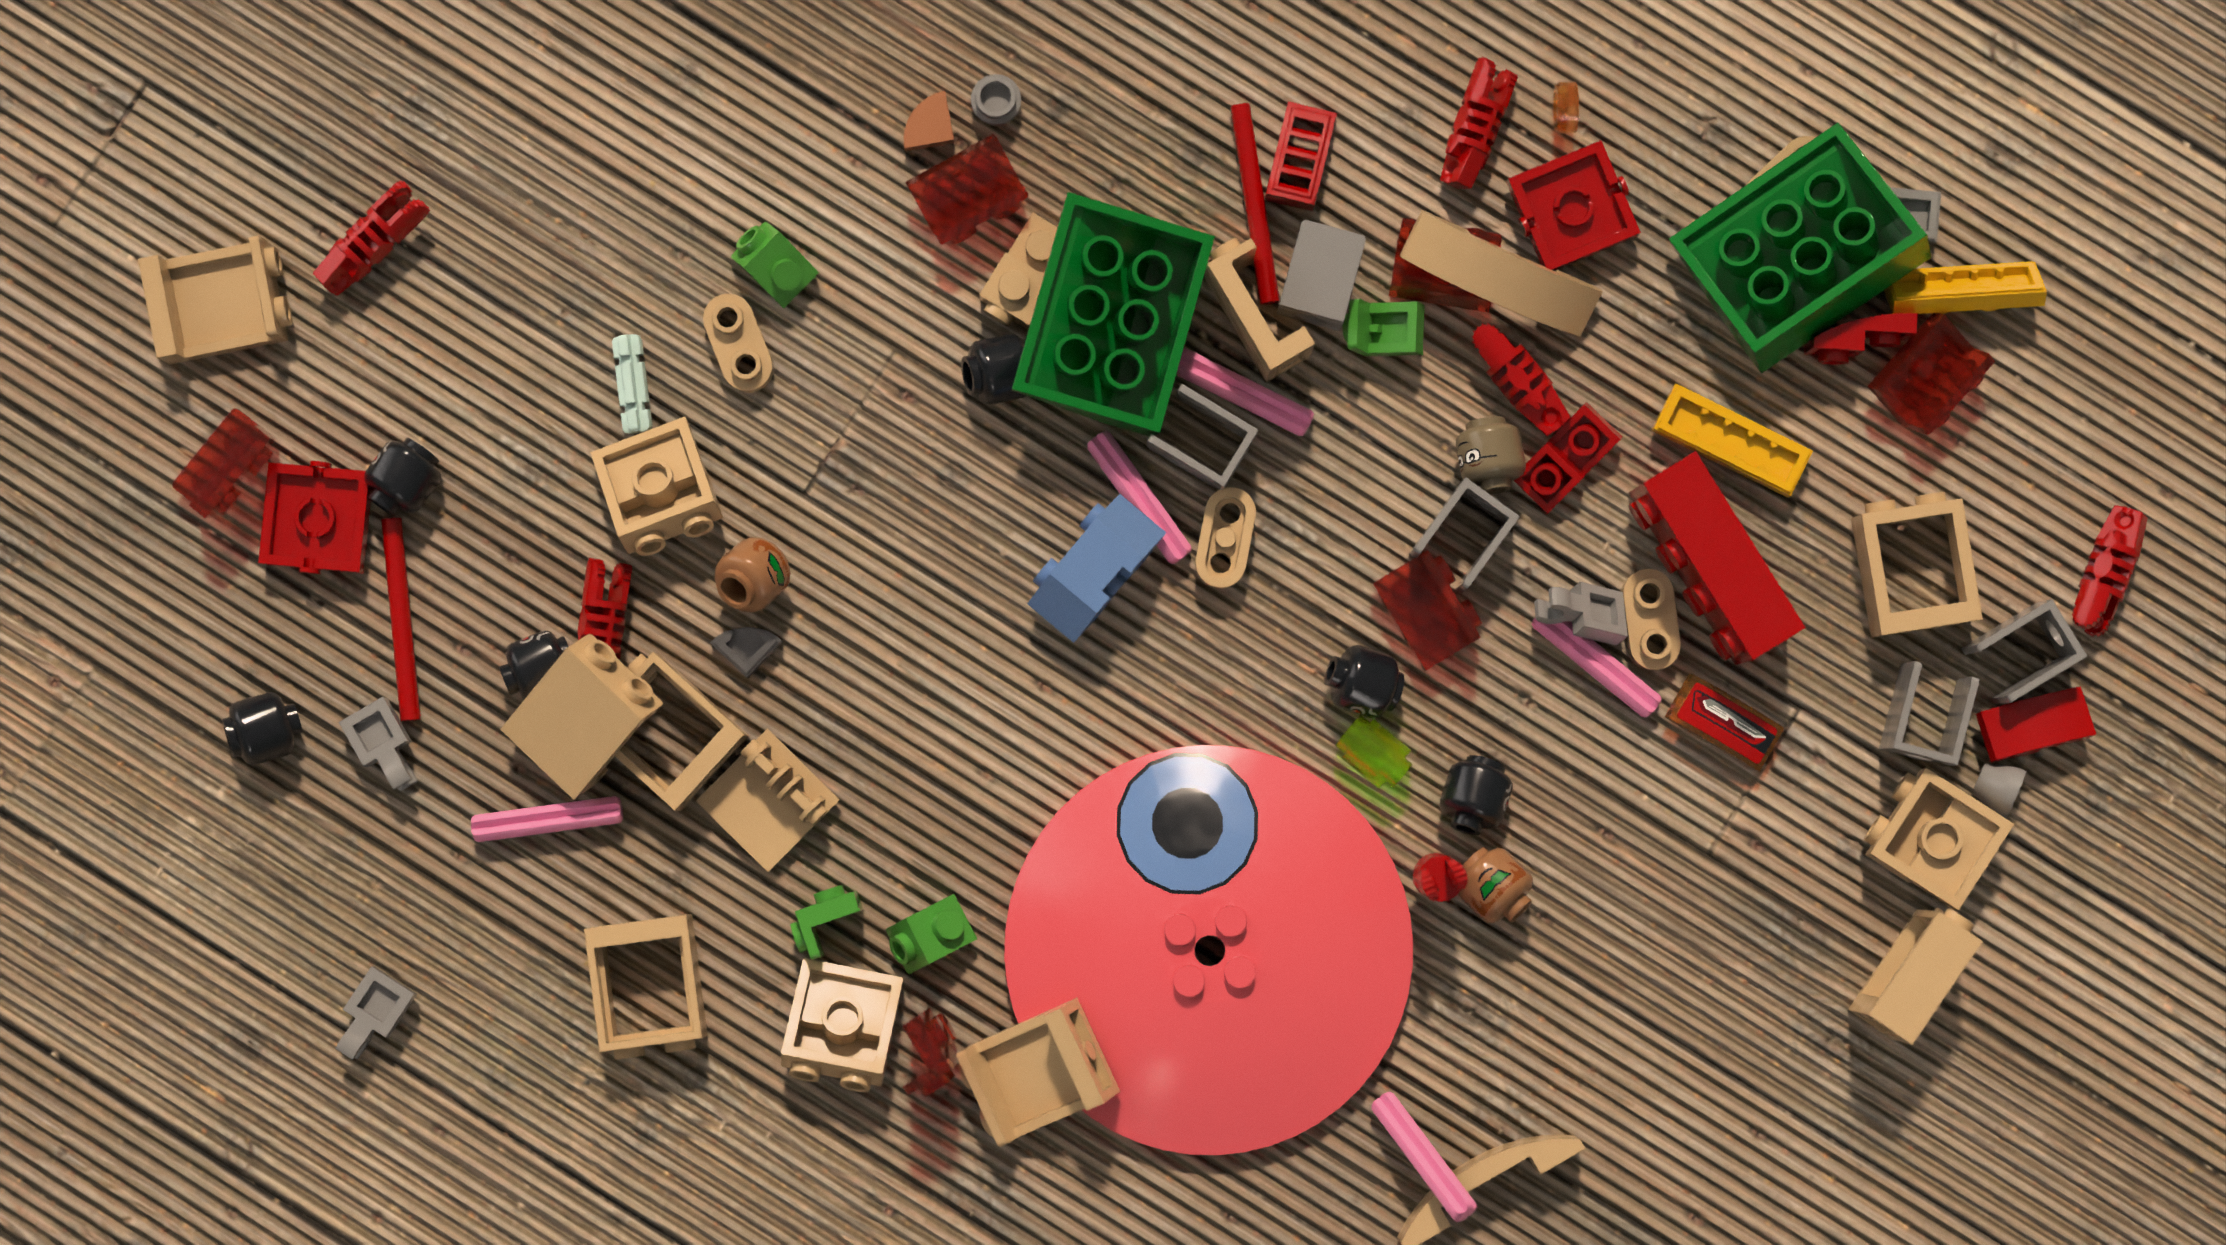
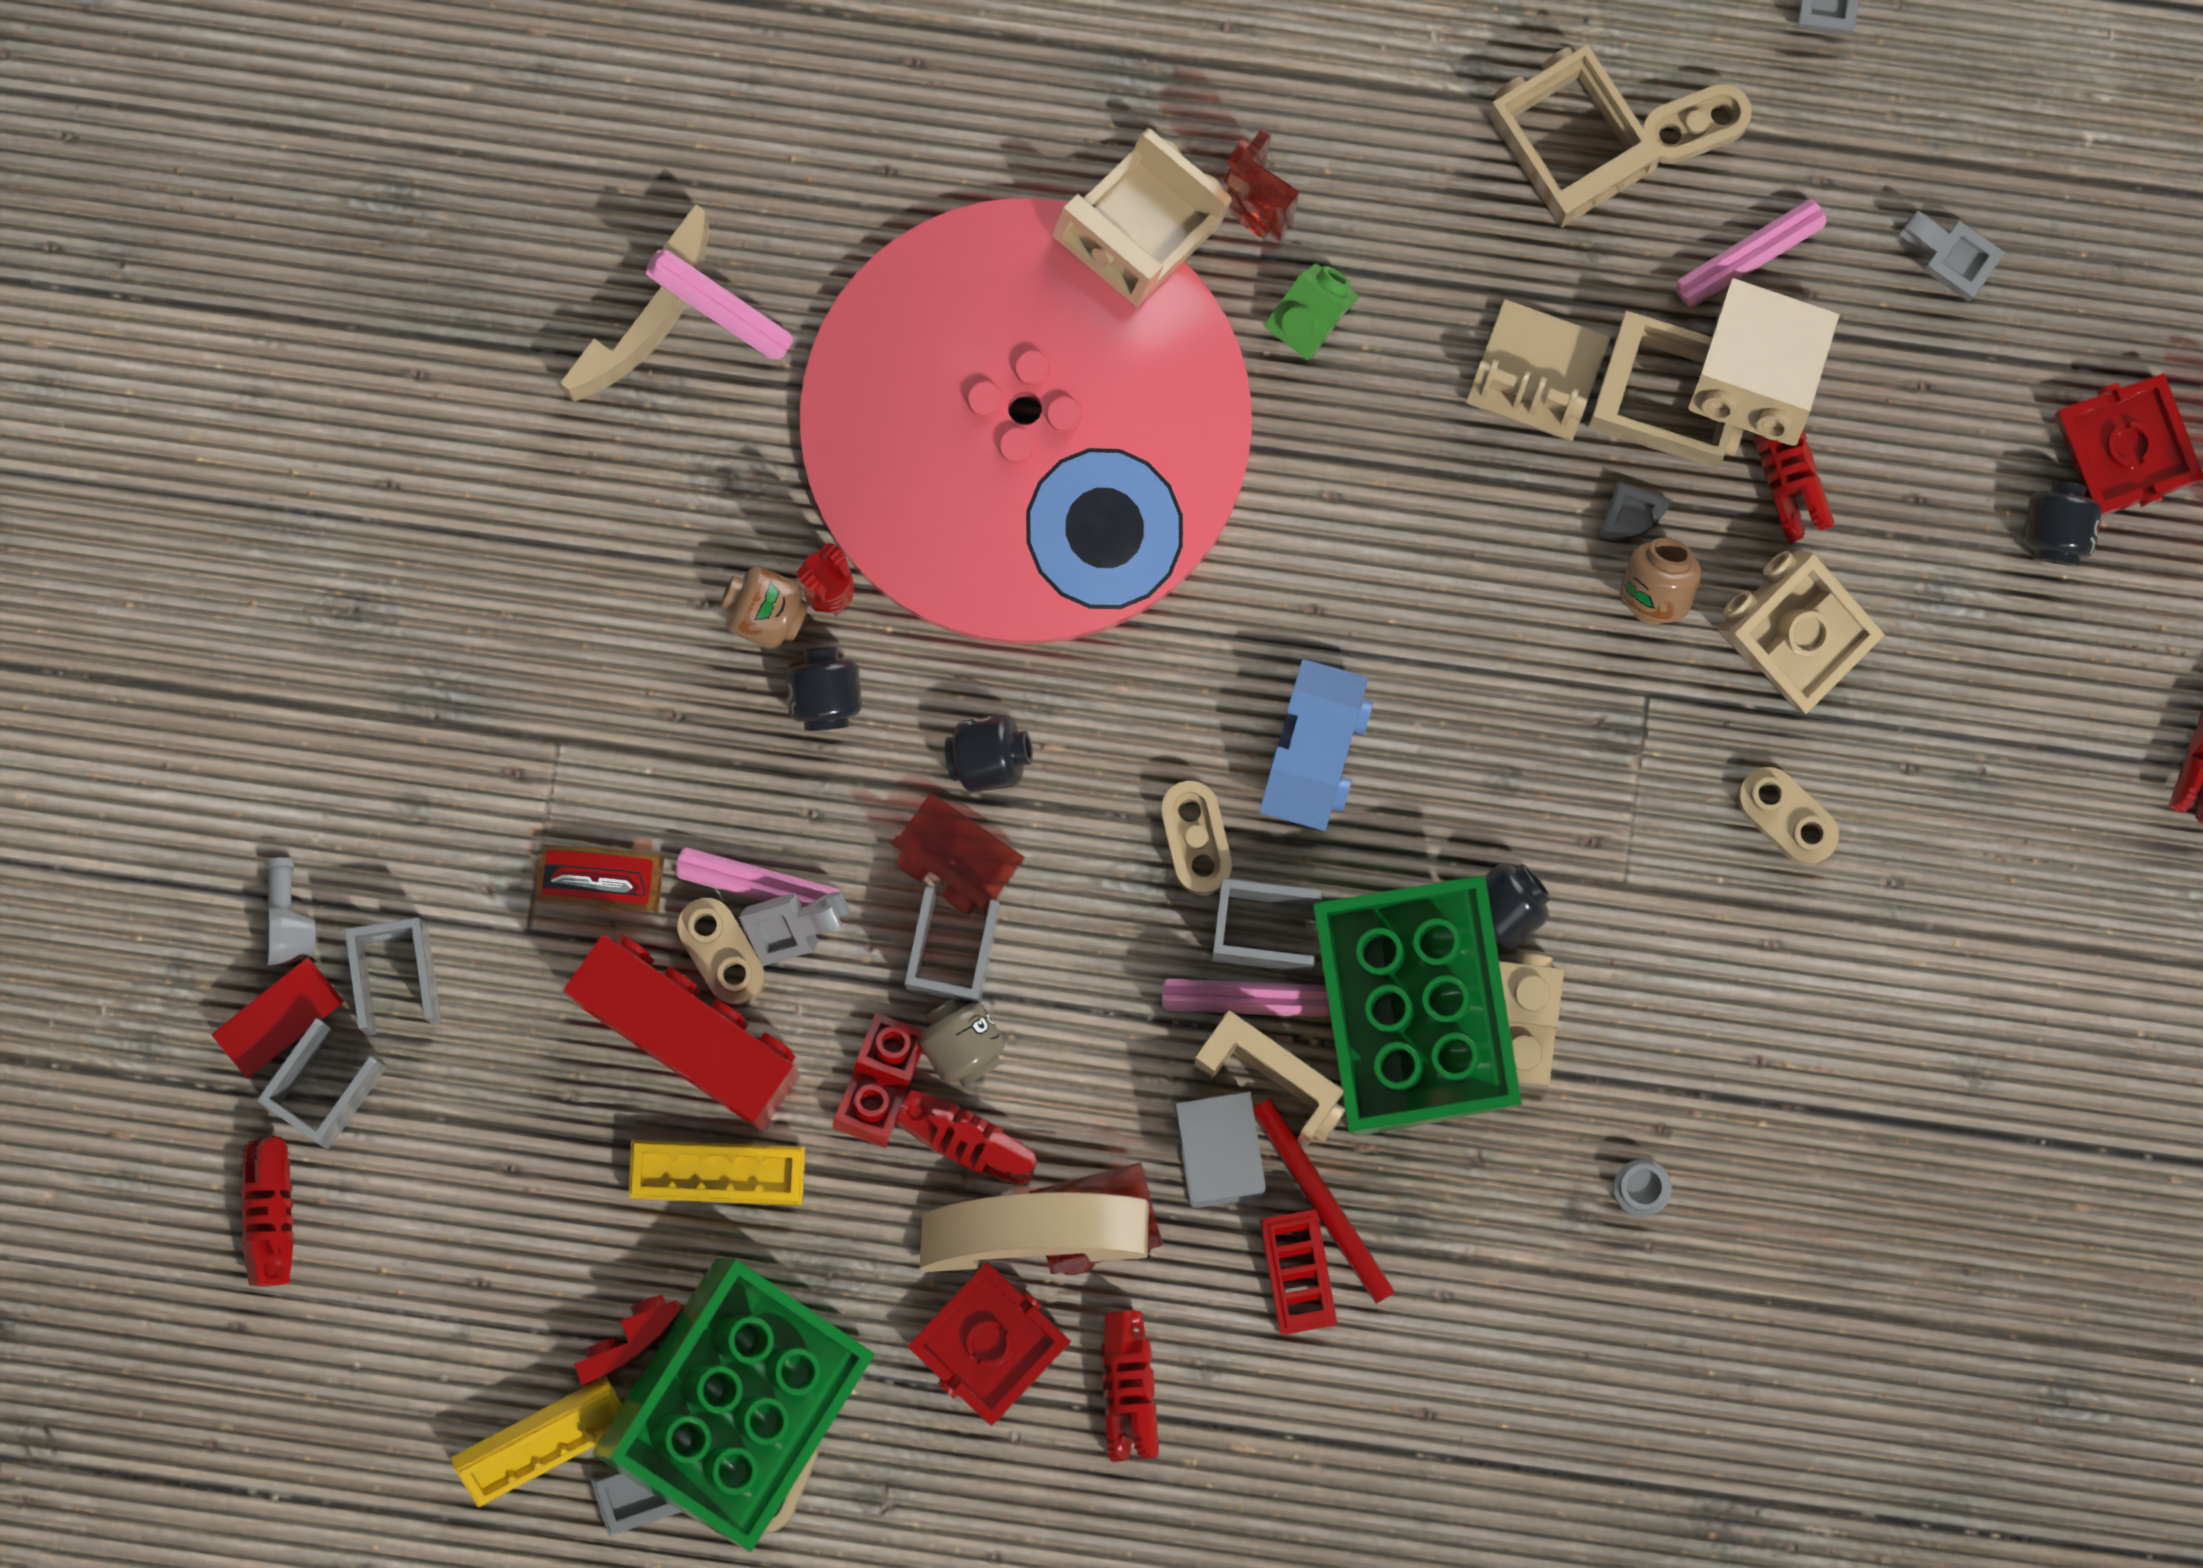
camera: 155 degrees right, 5 degrees down
(261, 728) = (2078, 213): black head -> none
(400, 619) = (1994, 385): red bar -> none
(530, 661) = (1840, 398): black head -> none
(540, 948) = (1694, 124): none -> tan plate
(632, 383) = (1876, 725): light aqua axle -> none
(773, 263) = (1791, 912): bright green bracket -> none
(829, 906) = (1426, 289): bright green bracket -> none
(841, 1024) = (1360, 180): tan plate -> none
(929, 124) = (1699, 1132): nougat tile -> none
(967, 191) = (1626, 1075): clear red bracket -> none
(1135, 489) = (1305, 843): bright pink axle -> none
(1374, 752) = (946, 687): clear neon green brick -> none
(1384, 328) = (1130, 1126): bright green bracket -> none
(1566, 107) = (1043, 1446): clear orange tile -> none
(1872, 574) = (437, 1077): tan window -> none
(1916, 974) = (298, 702): tan window -> none
(1930, 375) = (538, 1332): clear red bracket -> none
(1937, 837) = (333, 853): tan plate -> none

